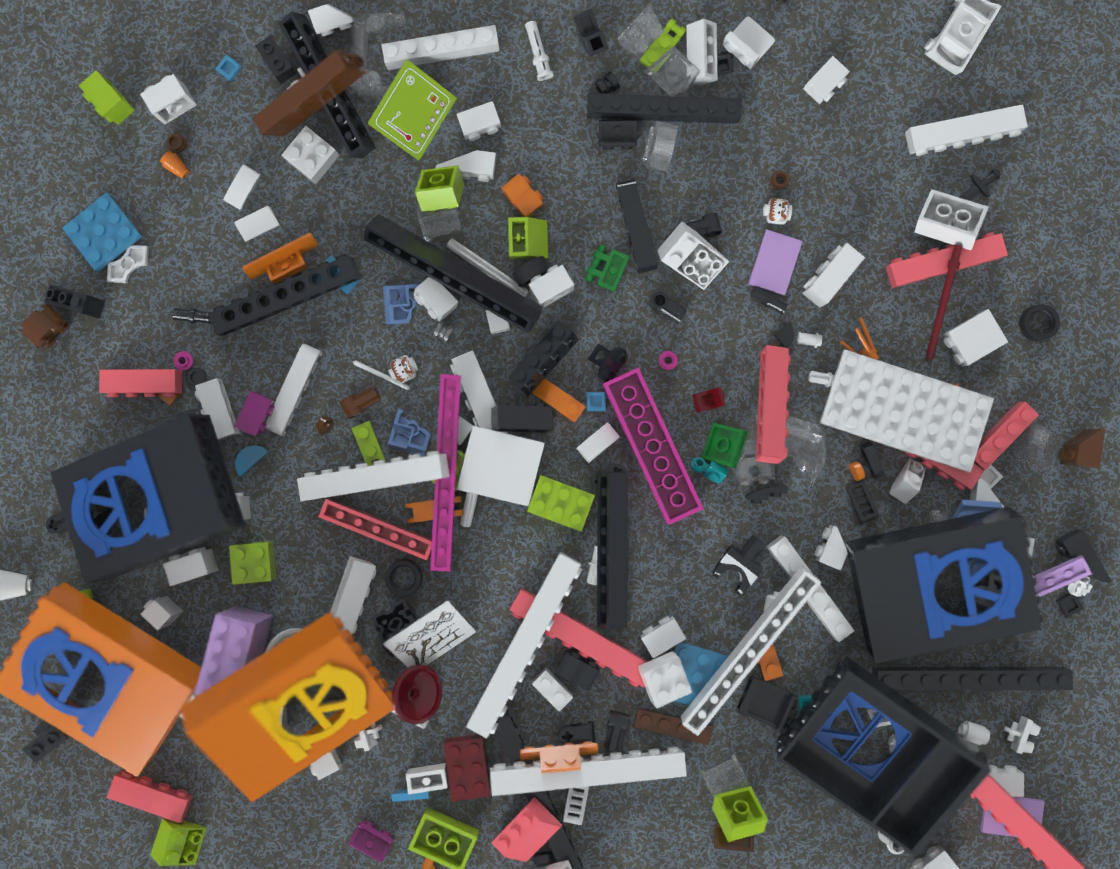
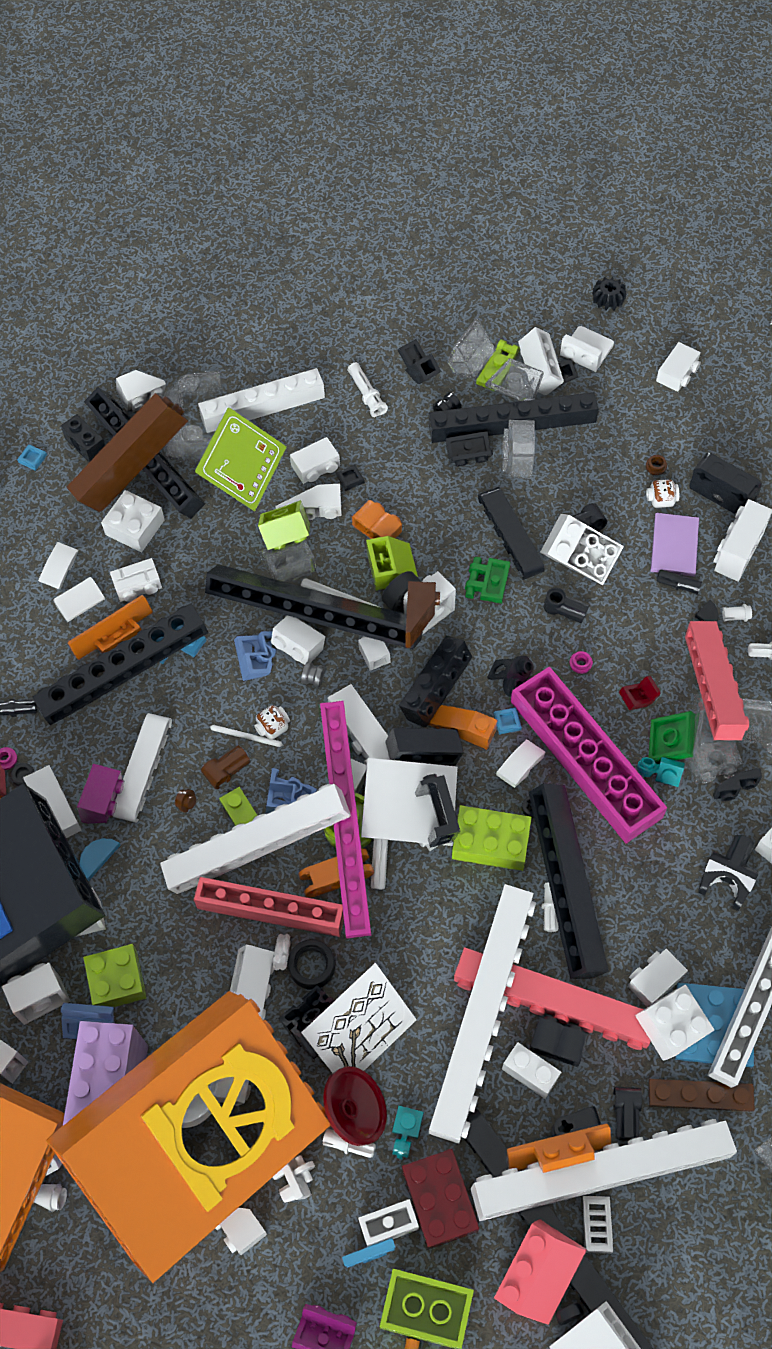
camera: 10 degrees left, 25 degrees down
(228, 593) = (74, 1013): none -> medium blue plate
(306, 214) = (136, 580): none -> white brick
(381, 566) = (281, 952): none -> white axle
(455, 708) = (408, 1125): none -> teal plate
(507, 142) = (350, 477): none -> black tile
(522, 503) = (443, 808): none -> black panel
(539, 302) = (420, 608): none -> reddish brown slope
(833, 216) = (724, 483): none -> black axle

